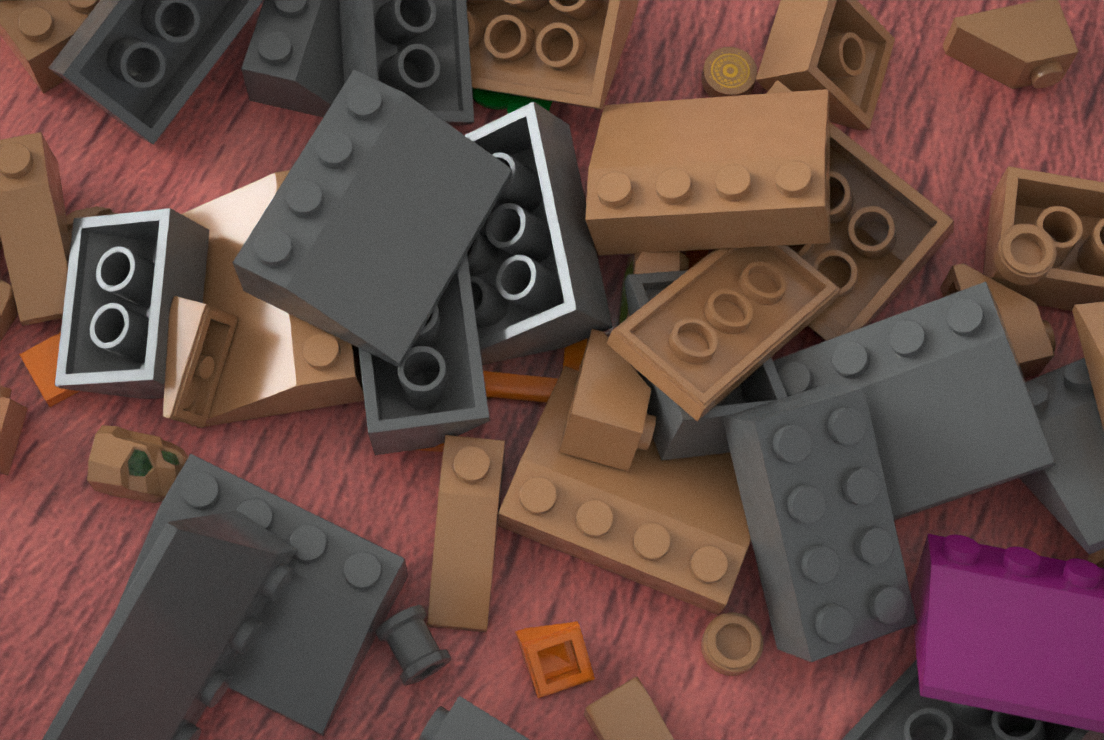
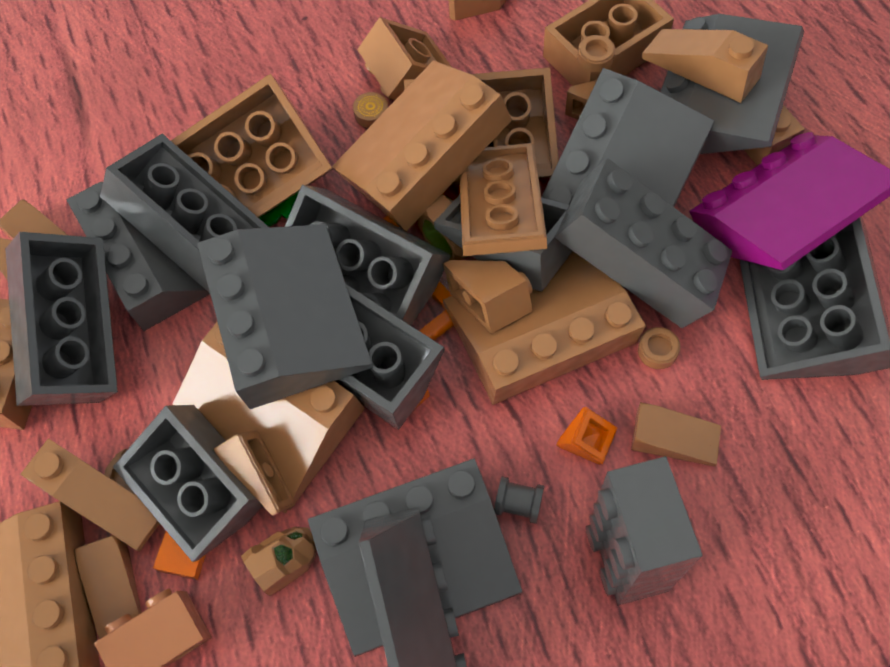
camera: 35 degrees left, 5 degrees down
(466, 533) = (483, 419): medium nougat slope -> none

